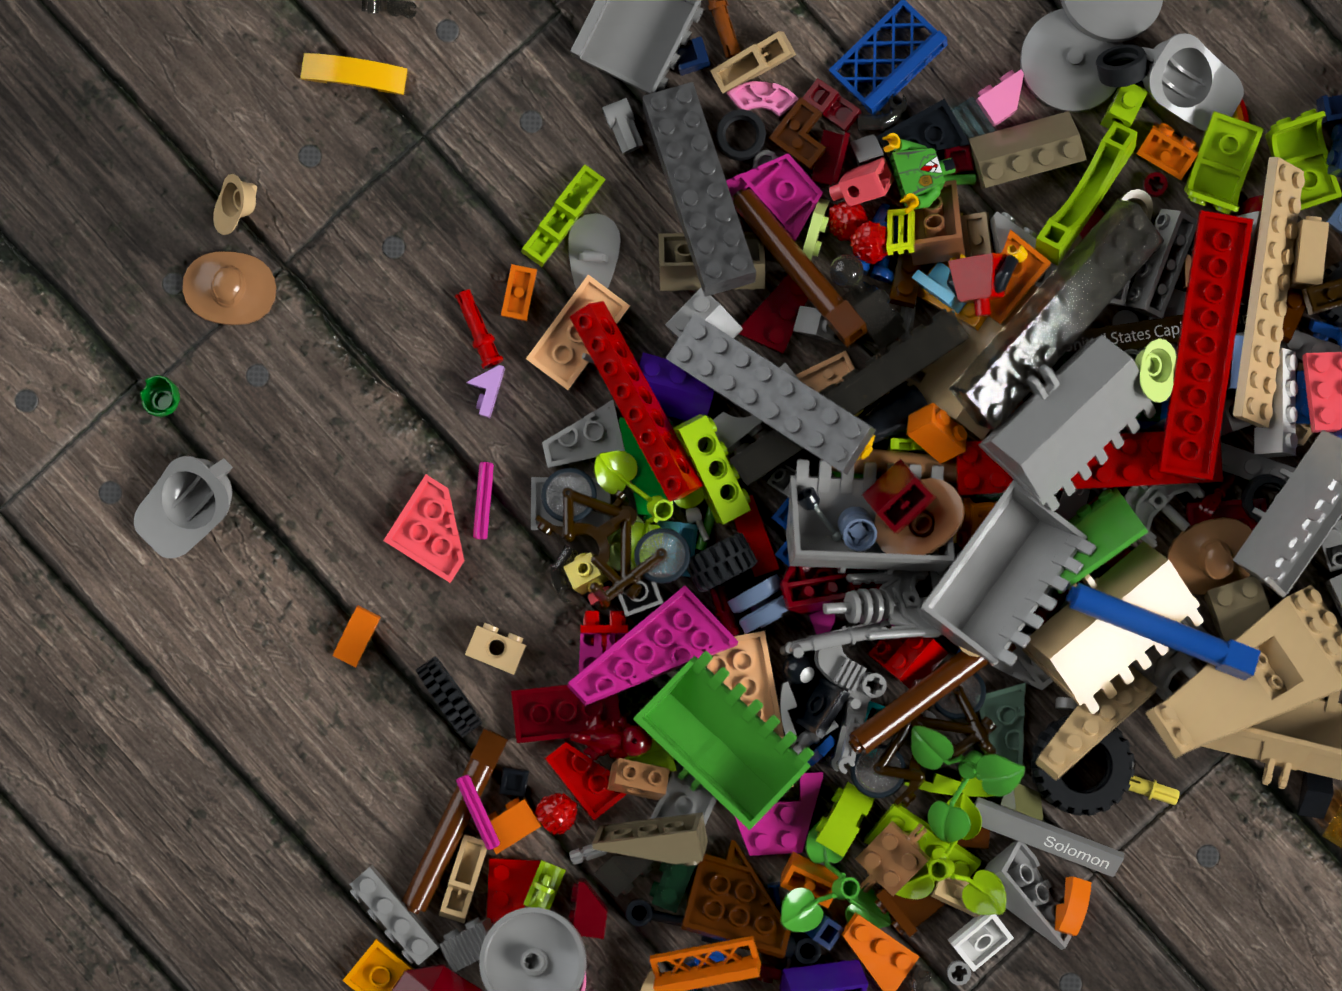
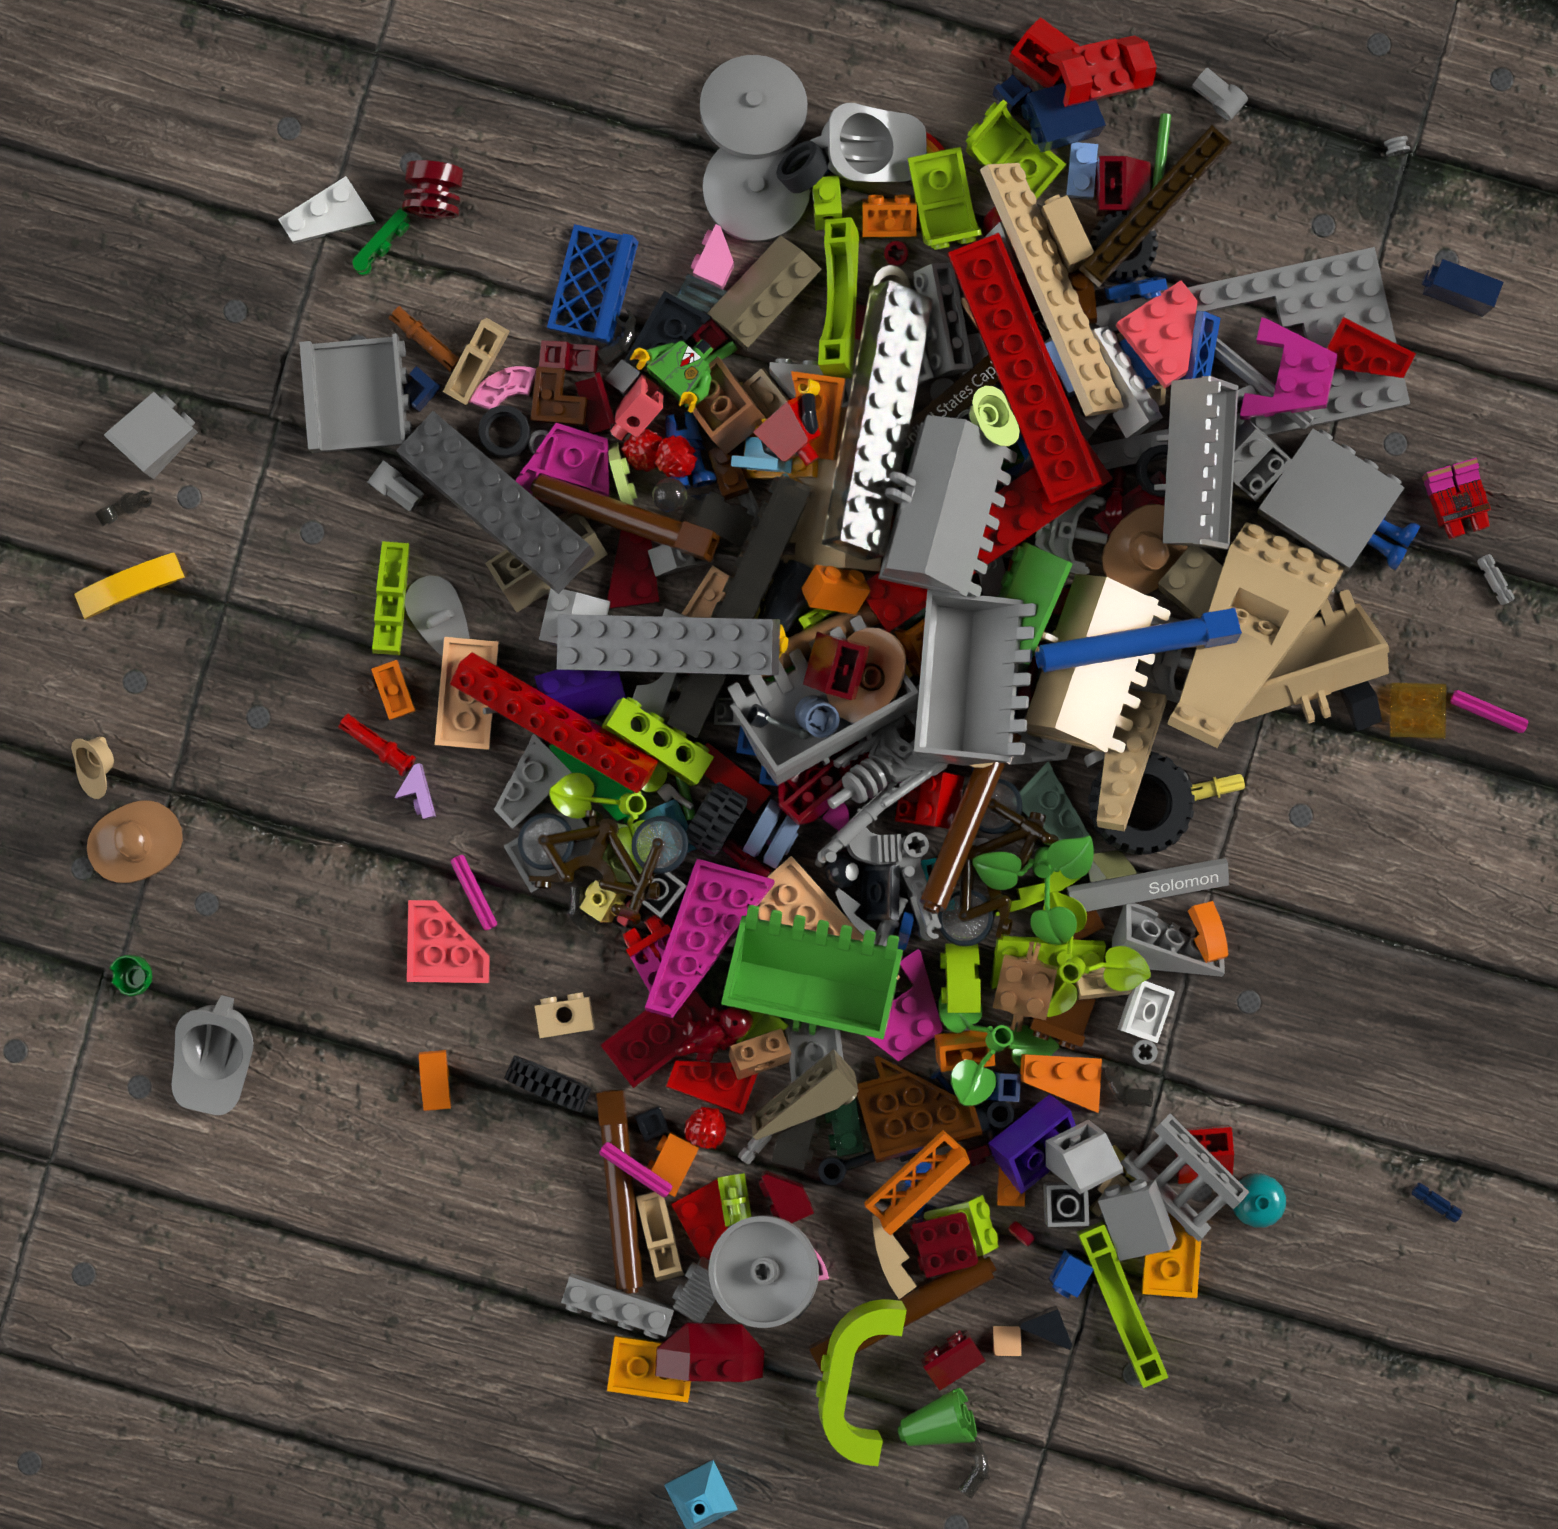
camera: 25 degrees left, 0 degrees up
(901, 245) = (703, 443): neon yellow tile -> none

